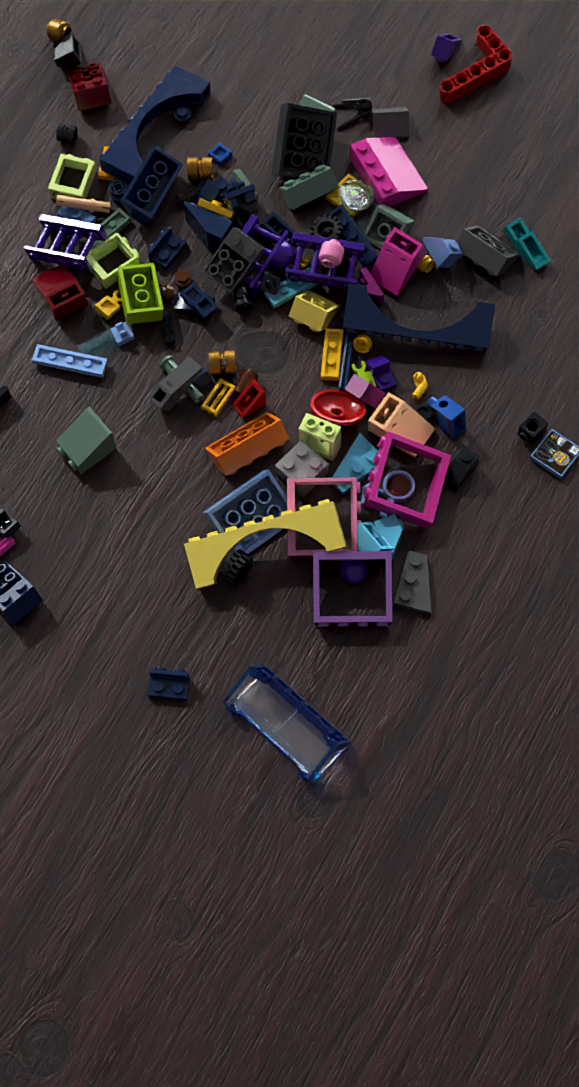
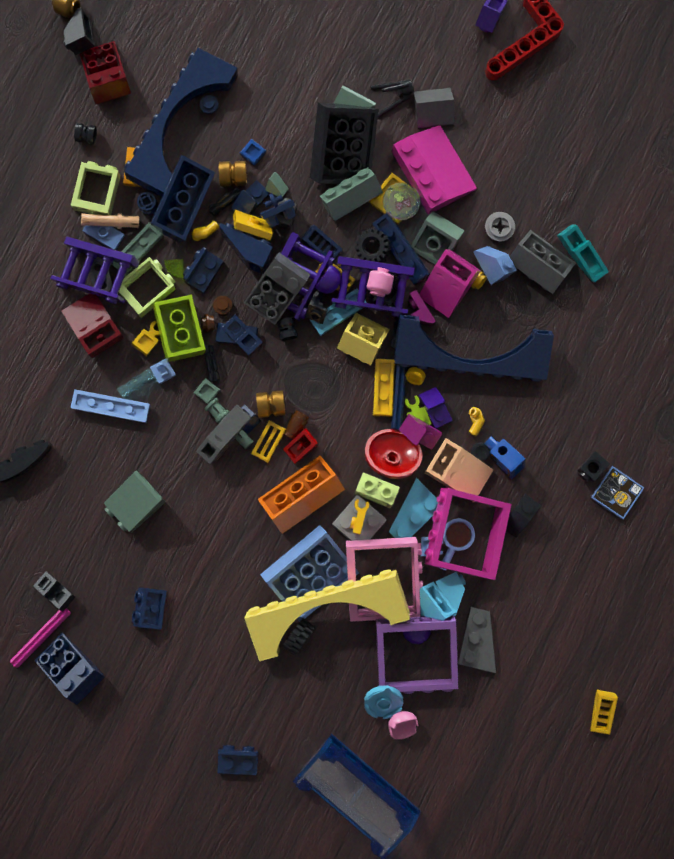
camera: 10 degrees left, 15 degrees up
(92, 539) = (149, 608): none -> dark blue bracket
(140, 246) = (175, 267): none -> clear neon green tile
(162, 350) = (207, 391): none -> sand green tile
(167, 217) = (204, 232): none -> yellow arm
(299, 460) = (357, 522): none -> yellow plate
(317, 632) = (383, 702): none -> medium azure tile
(335, 655) = (402, 725): none -> bright pink hair
(455, 219) = (505, 220): none -> light grey gear
(540, 638) = (610, 713): none -> yellow slope

